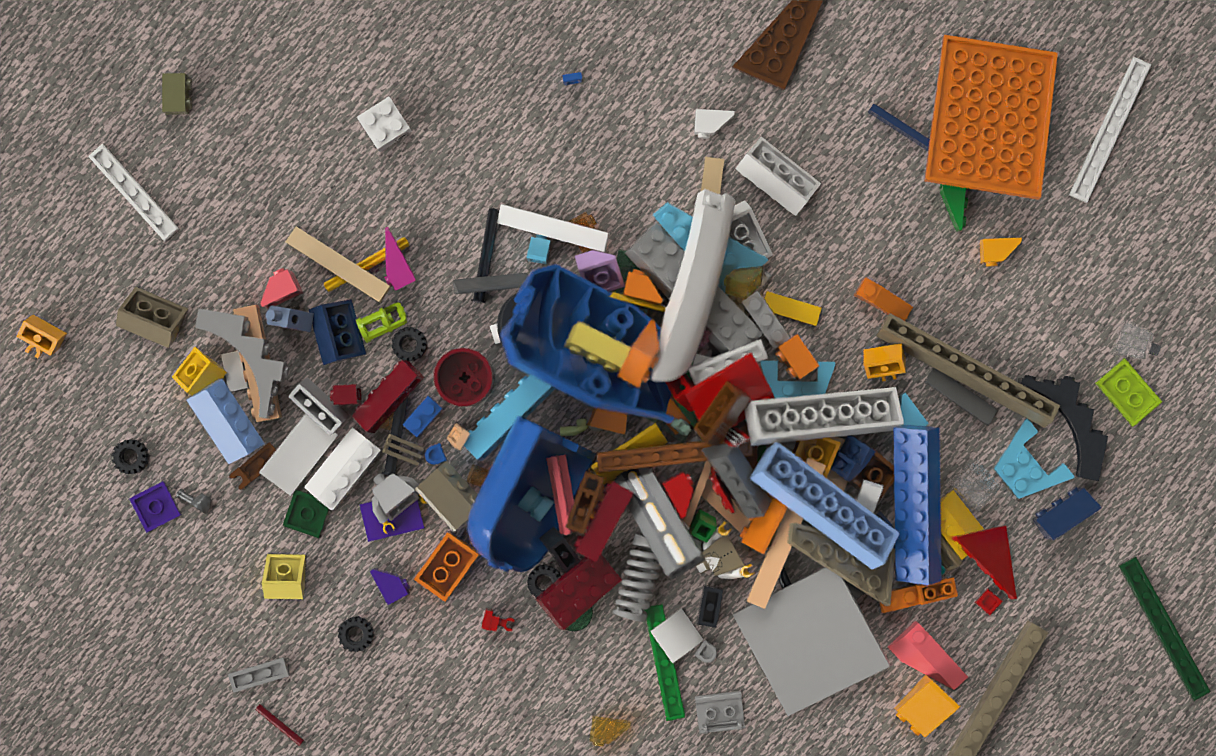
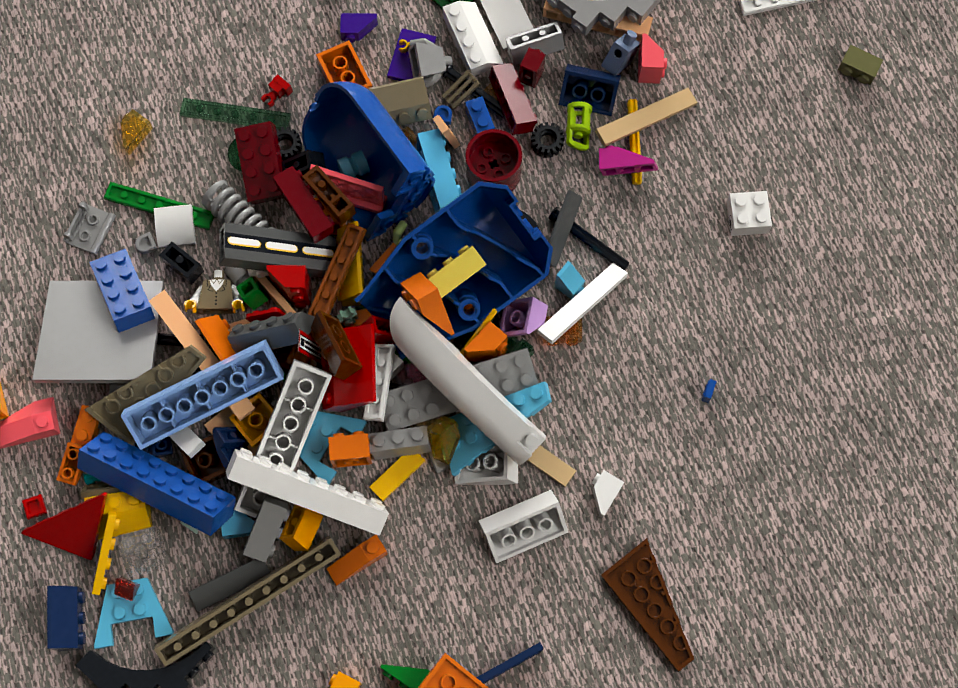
camera: 115 degrees right, 15 degrees down
(538, 647) = (232, 113): none -> clear green tile
(765, 641) = (122, 290): none -> brick
(858, 368) = (306, 491): none -> white brick
(904, 387) = (266, 528): none -> light grey brick
(1002, 511) = (107, 544): none -> yellow plate
(1014, 478) = (126, 588): none -> clear red slope

